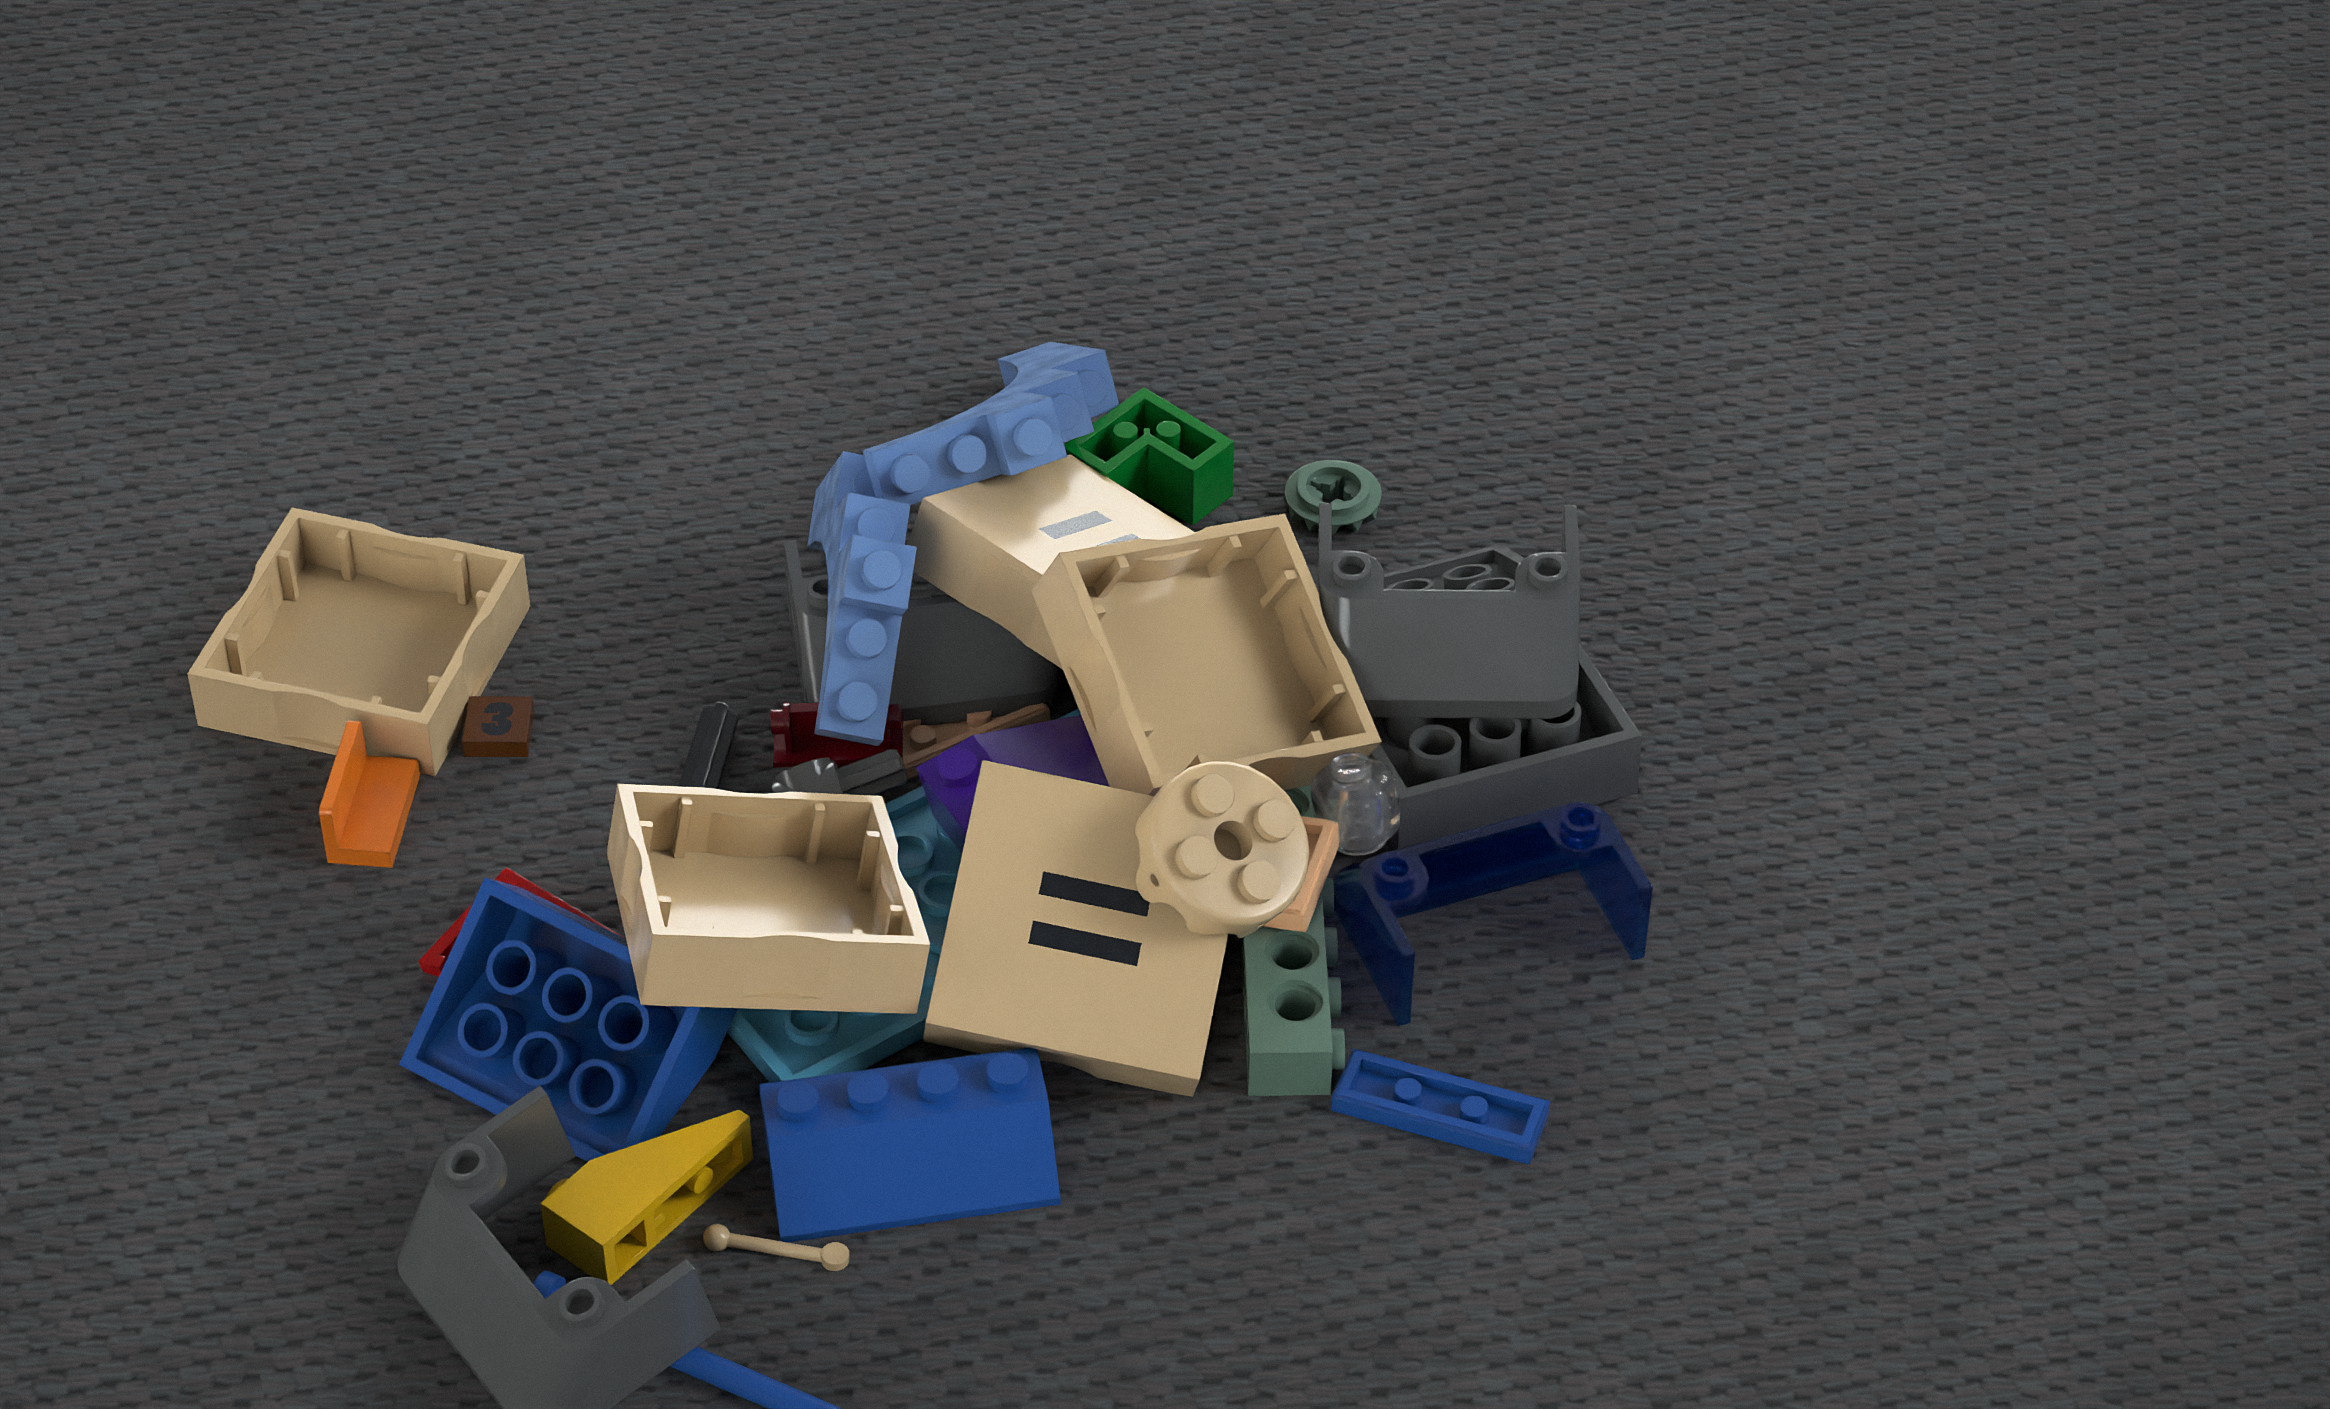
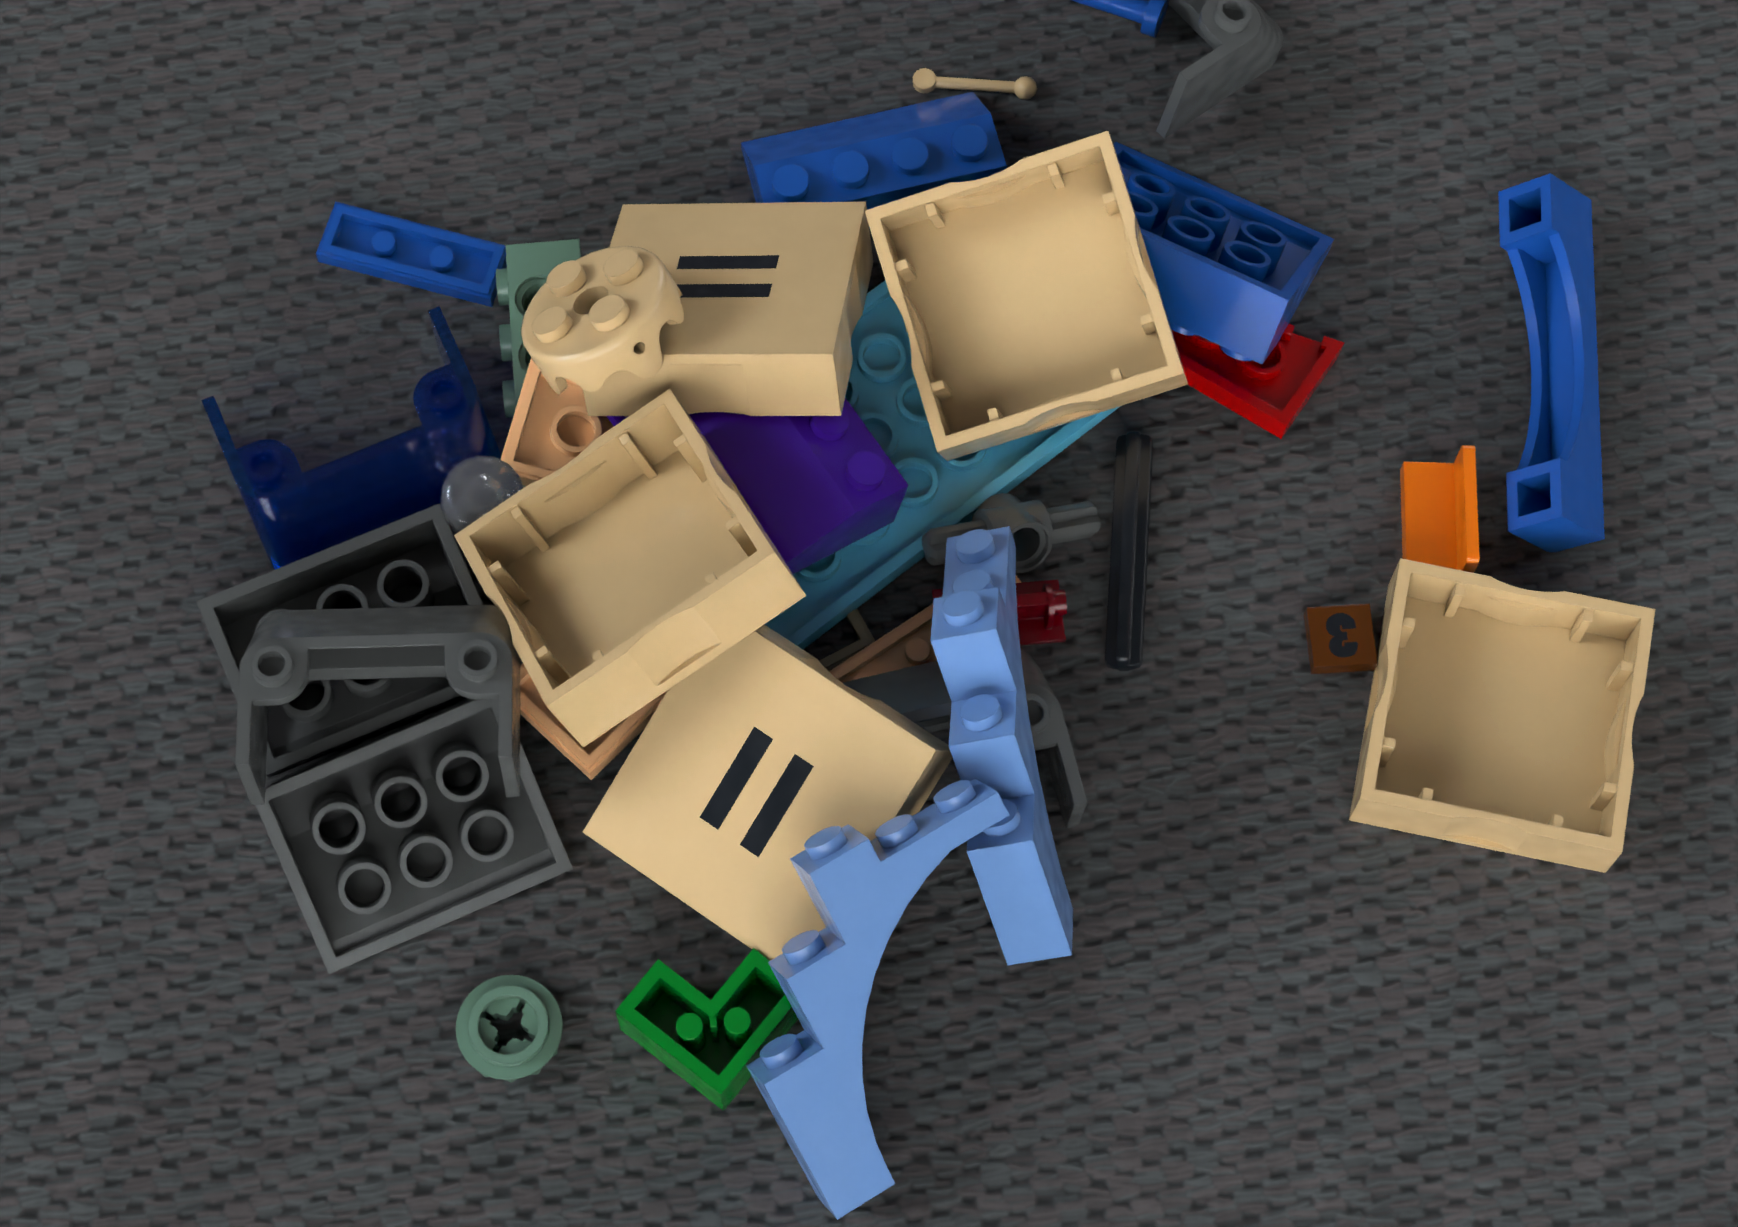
camera: 175 degrees right, 25 degrees up
(169, 998) = (1558, 483): none -> blue arch
(638, 1195) = (1103, 92): yellow slope -> none

